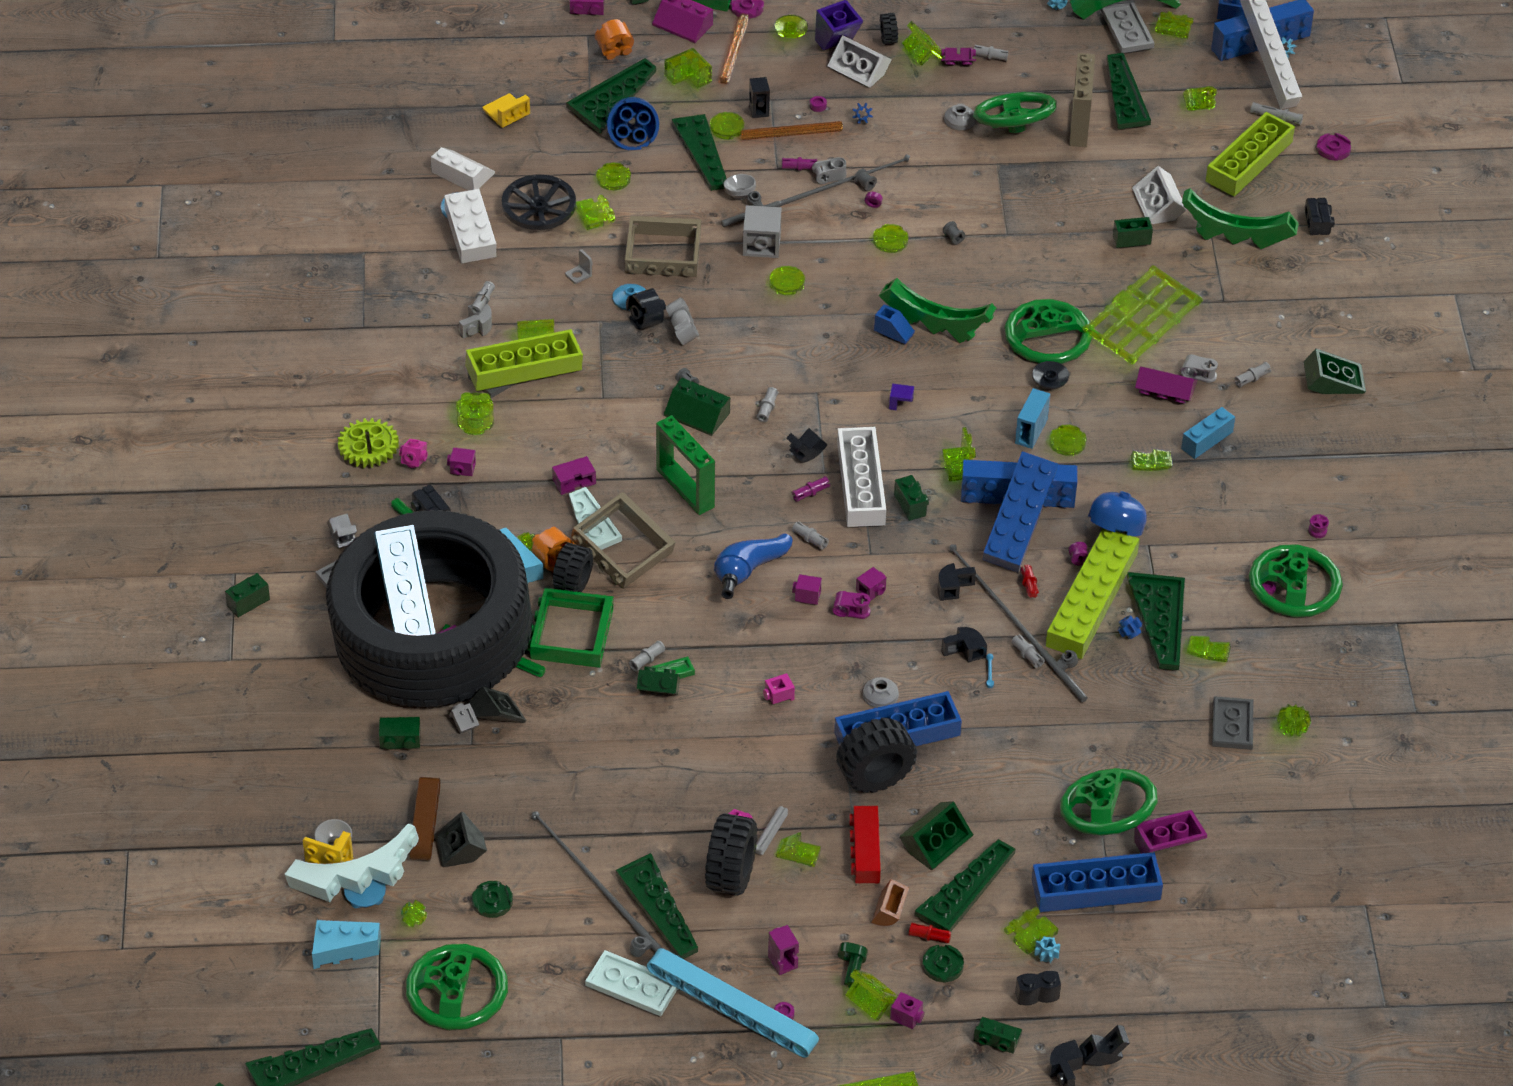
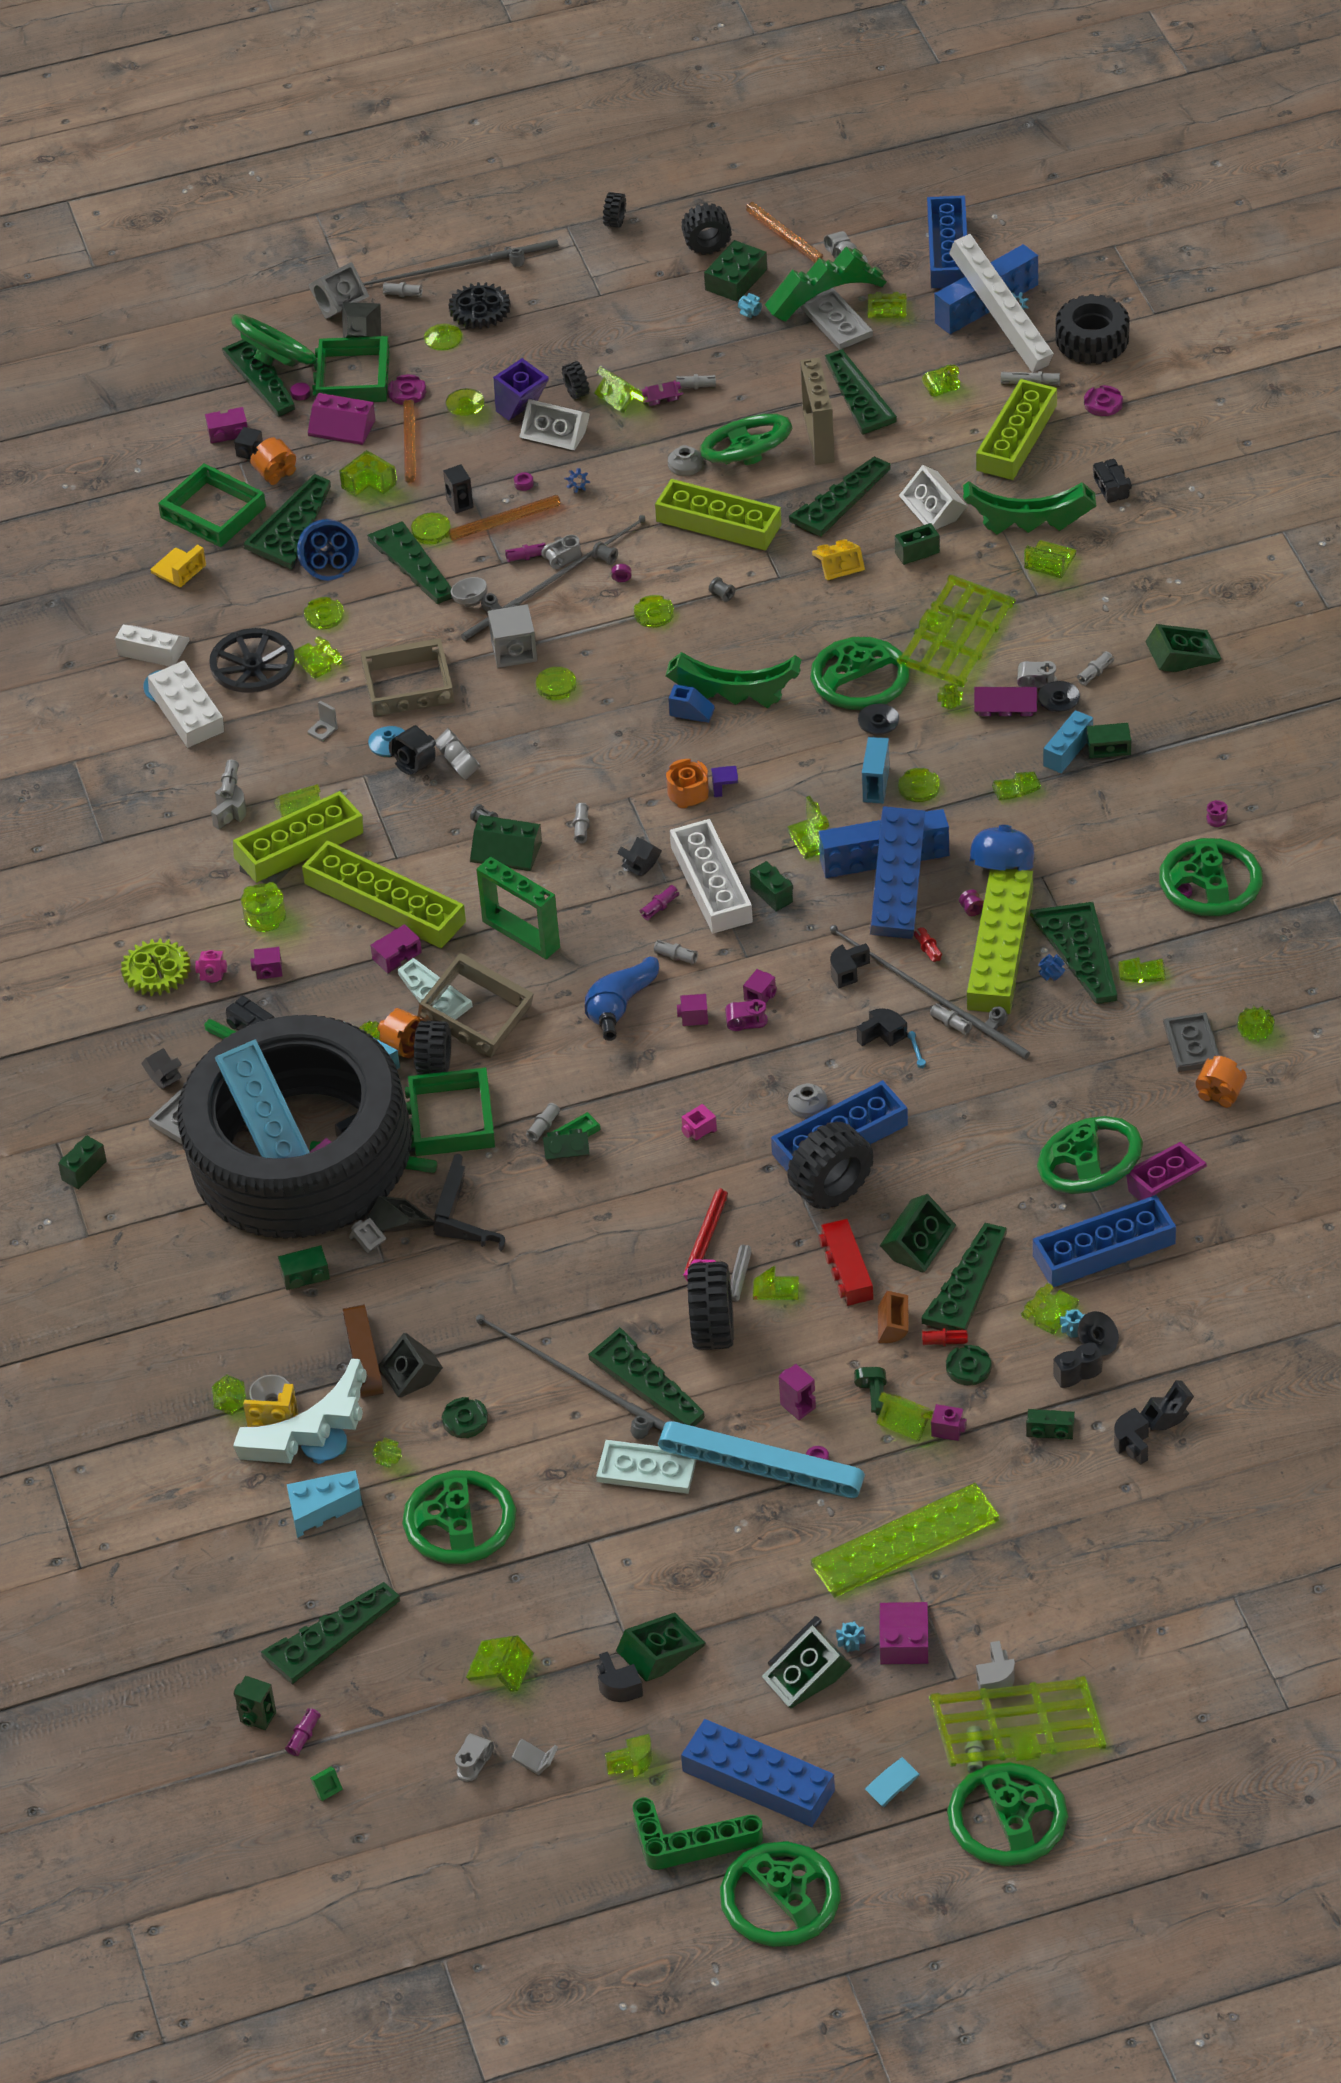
camera: 10 degrees left, 0 degrees up
(297, 827) = (228, 1394): none -> clear neon green brick
(518, 56) = (172, 512): none -> green window
(540, 708) = (444, 1223): none -> black hinge
(579, 426) = (384, 893): none -> lime brick
(597, 18) = (247, 442): none -> black brick
(758, 782) = (708, 1226): none -> red axle
(868, 391) = (687, 783): none -> orange brick
(971, 168) = (718, 514): none -> lime brick
(1063, 230) = (840, 559): none -> yellow bracket
(1069, 184) = (832, 505): none -> dark green wing
(1071, 959) = (1103, 1328): none -> black dish
(1118, 369) = (949, 696): none -> clear neon green gear
(1213, 391) = (1059, 696): none -> black dish
(1241, 438) = (1109, 740): none -> dark green brick
(1242, 270) = (1048, 558): none -> clear neon green bracket
(1245, 764) = (1220, 1081): none -> orange brick
(1337, 97) = (1092, 313): none -> black tyre

